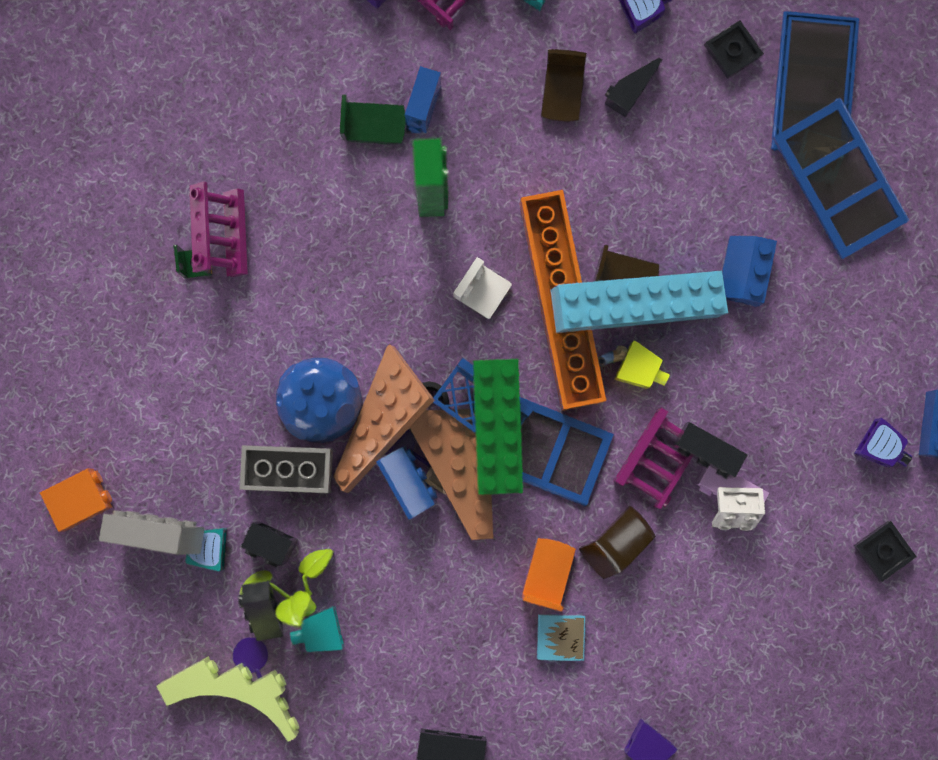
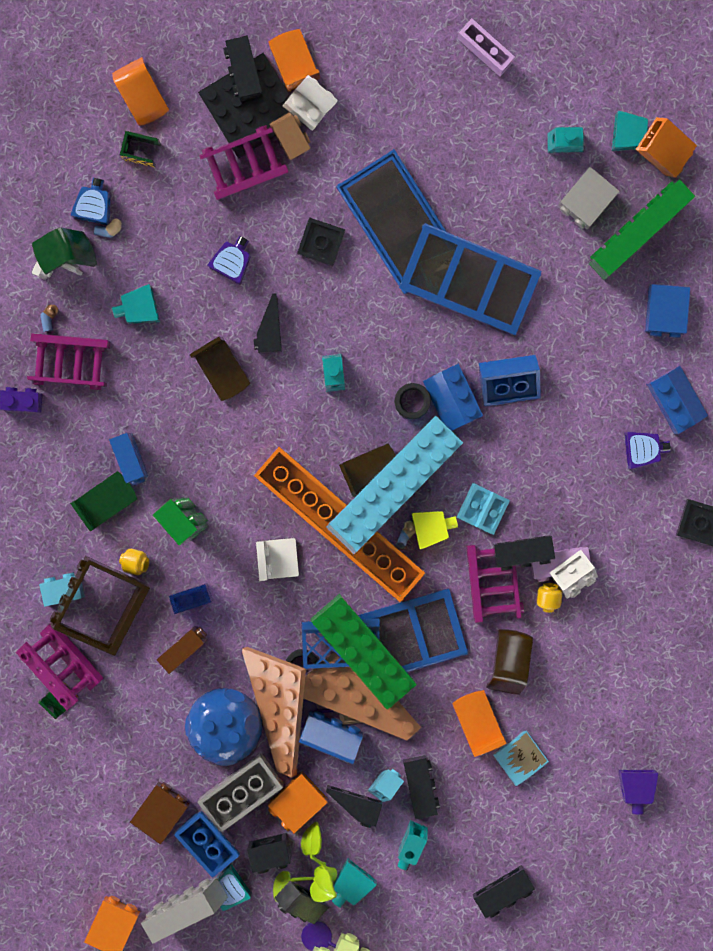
camera: 30 degrees left, 5 degrees up
(201, 430) = (160, 812): none -> reddish brown brick
(220, 490) = (206, 843): none -> blue slope
(273, 169) = (54, 589): none -> medium azure brick
(306, 239) = (123, 624): none -> dark brown window
(329, 519) = (297, 802): none -> orange brick
(337, 300) = (182, 649): none -> reddish brown brick
(355, 194) = (134, 561): none -> yellow head
(379, 263) = (190, 598): none -> clear blue brick
(382, 567) = (360, 807): none -> black slope
(408, 635) = (412, 845): none -> teal torso
(422, 564) = (386, 785): none -> medium azure brick
(451, 592) = (421, 786): none -> black brick
(659, 167) = (333, 372): none -> teal torso
(698, 387) = (483, 508): none -> medium azure slope
(698, 511) = (549, 597): none -> yellow head
(722, 236) = (426, 405): none -> black tyre
(809, 293) = (510, 380): none -> blue slope

